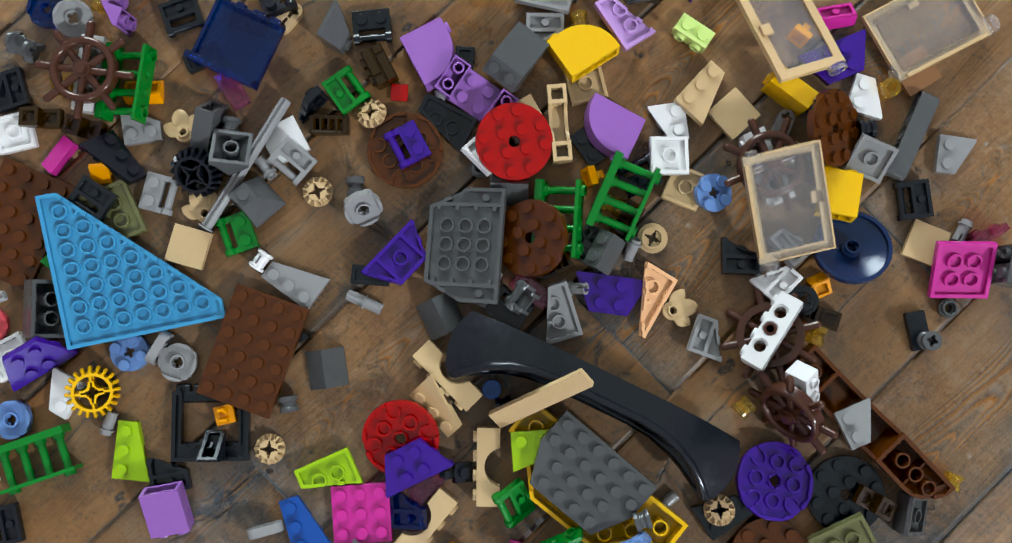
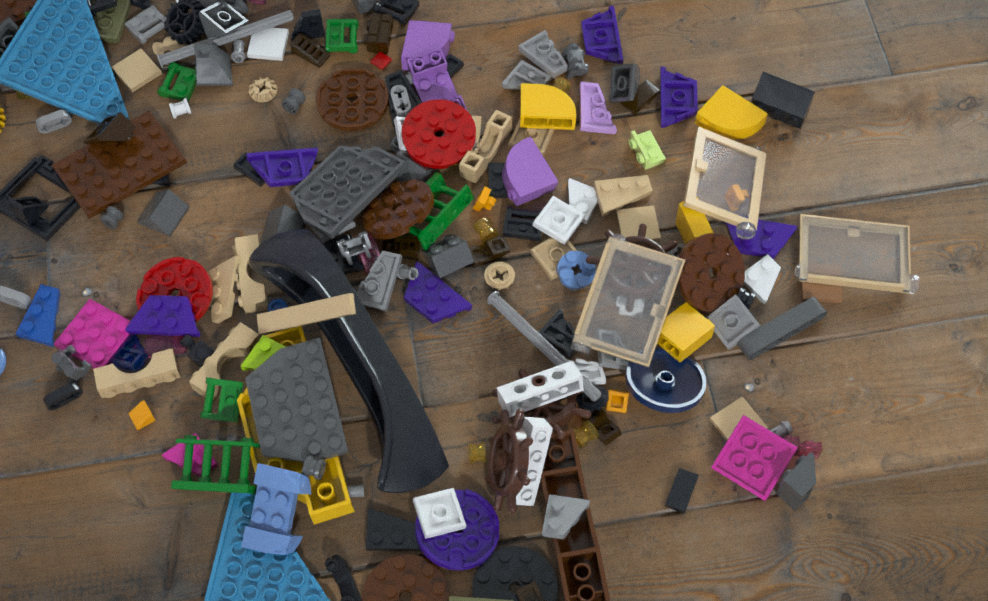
camera: 35 degrees right, 25 degrees down
(126, 362) = (27, 105): medium blue plate -> none
(168, 366) = (62, 148): light grey plate -> none
(225, 333) = (112, 129): none -> dark brown slope
(225, 414) = (58, 197): light orange tile -> none
(276, 443) = (69, 250): tan gear -> none
(295, 283) = (192, 141): light grey wing -> none
(296, 156) = (267, 55): light grey plate -> none
(330, 470) = (99, 286): lime wing -> none
(362, 198) = (293, 108): light grey plate -> none
(364, 302) = (232, 184): light grey axle -> none
(377, 116) = (347, 60): tan gear -> none
(413, 141) = (362, 93): dark purple plate -> none
(450, 130) = (400, 101): none -> light grey beam
(515, 57) = (487, 82): dark grey slope -> none
(612, 180) = (493, 202): green fence -> none
(631, 249) = (475, 271): light grey pin -> none
(655, 292) = (471, 314): light nougat wing -> none
(681, 306) = (483, 344): tan plate -> none
(705, 338) = (485, 378): light grey wing -> none
(713, 517) = (392, 528): tan gear -> none
(731, 280) = (537, 339): none -> light grey axle
(756, 482) = (439, 513): none -> white tile
(838, 15) = (778, 205): dark pink slope -> none
(885, 91) = (786, 280): clear yellow wheel -> none
(919, 199) = (756, 382): black plate -> none
(923, 340) = (683, 503): dark grey wheel -> none
(951, 153) = (812, 365): light grey wing -> none
(953, 308) = (722, 483): dark grey plate -> none

